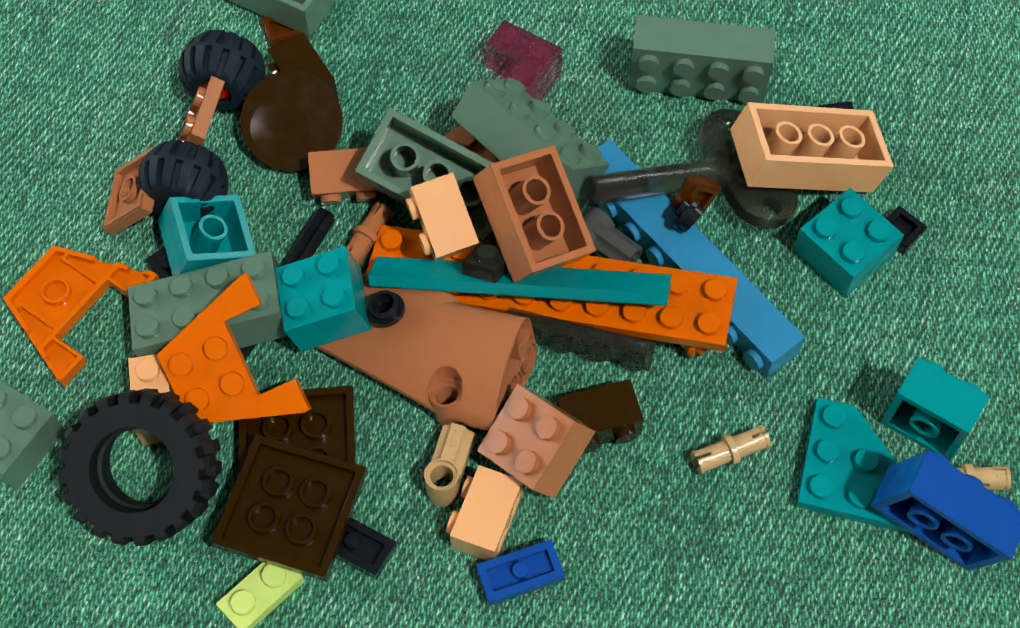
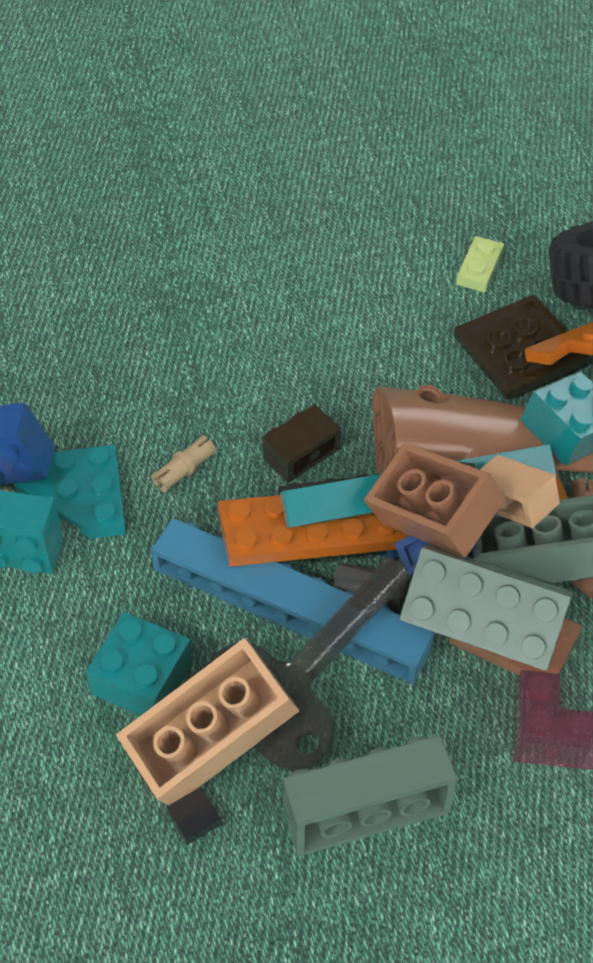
camera: 155 degrees right, 10 degrees down
(290, 507) = (493, 293): dark brown plate -> none
(365, 549) = (437, 305): black plate -> none
(380, 302) = (516, 424): black plate -> none
(448, 463) = (398, 363): tan piece -> none
(485, 513) = (352, 350): light nougat brick -> none
(520, 572) = (306, 329): blue plate -> none
(536, 441) = (339, 386): nougat brick -> none
(688, 214) = (301, 601): black plate -> none
(695, 188) = (303, 633): reddish brown tile -> none
(909, 226) = (91, 717): black tile -> none

